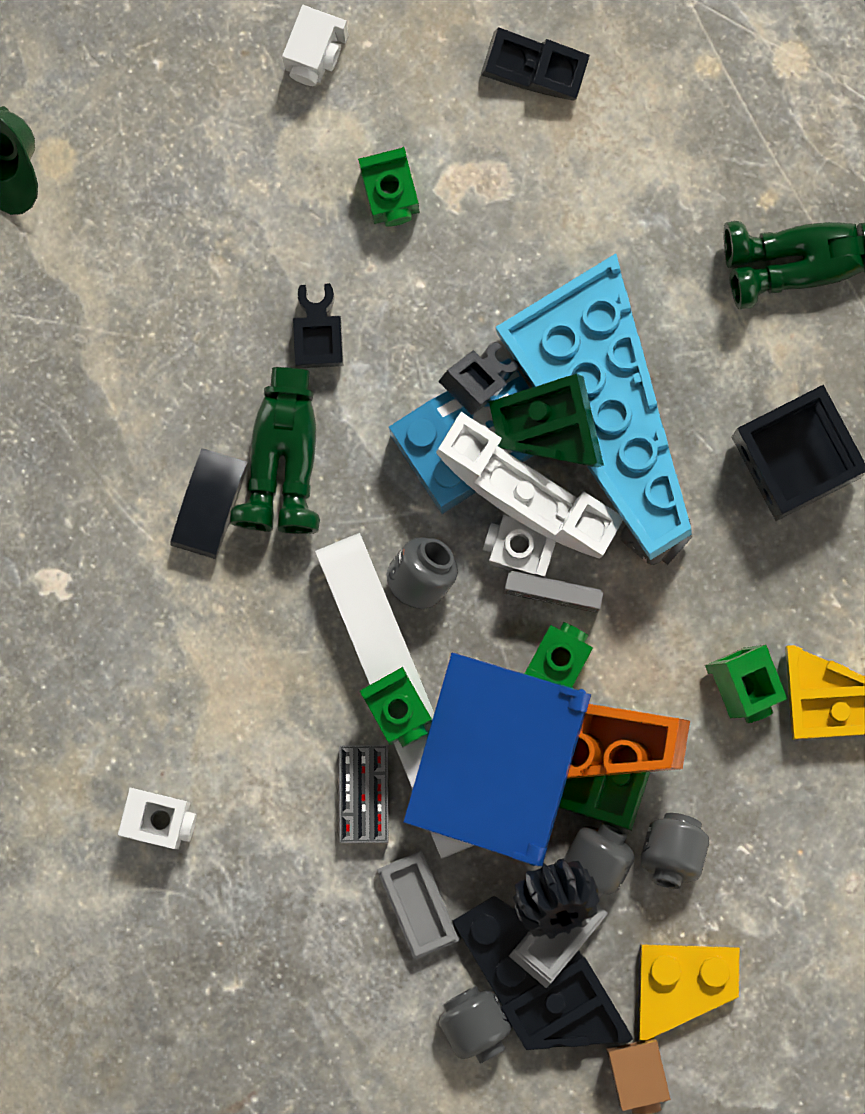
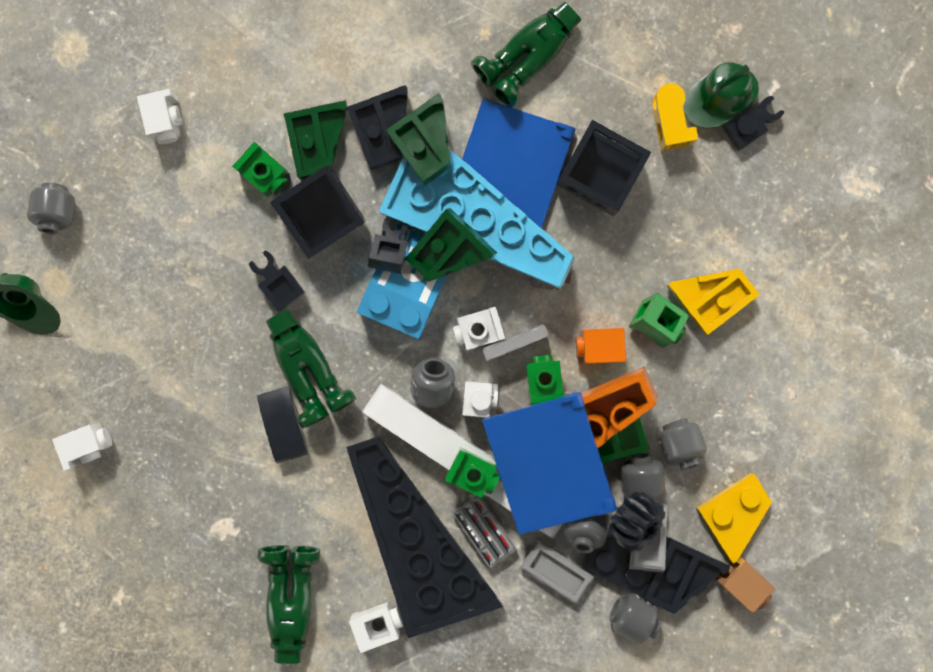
camera: 40 degrees left, 5 degrees up
(56, 739) = (288, 619): none -> dark green piece
(112, 68) = (51, 208): none -> dark grey head
(266, 782) = (424, 562): none -> black wing
(424, 278) = (318, 211): none -> black piece
(466, 629) = (480, 399): none -> white brick
(480, 190) = (315, 136): none -> dark green wing
(488, 875) = (588, 533): none -> dark grey head
(524, 493) = (461, 298): white slope -> none
(535, 66) = (299, 42): black slope -> none
(567, 228) = (371, 121): none -> black wing
(607, 277) = (424, 139): none -> dark green wing
(655, 665) = (601, 345): none -> orange brick
(709, 373) = (519, 155): none -> blue piece

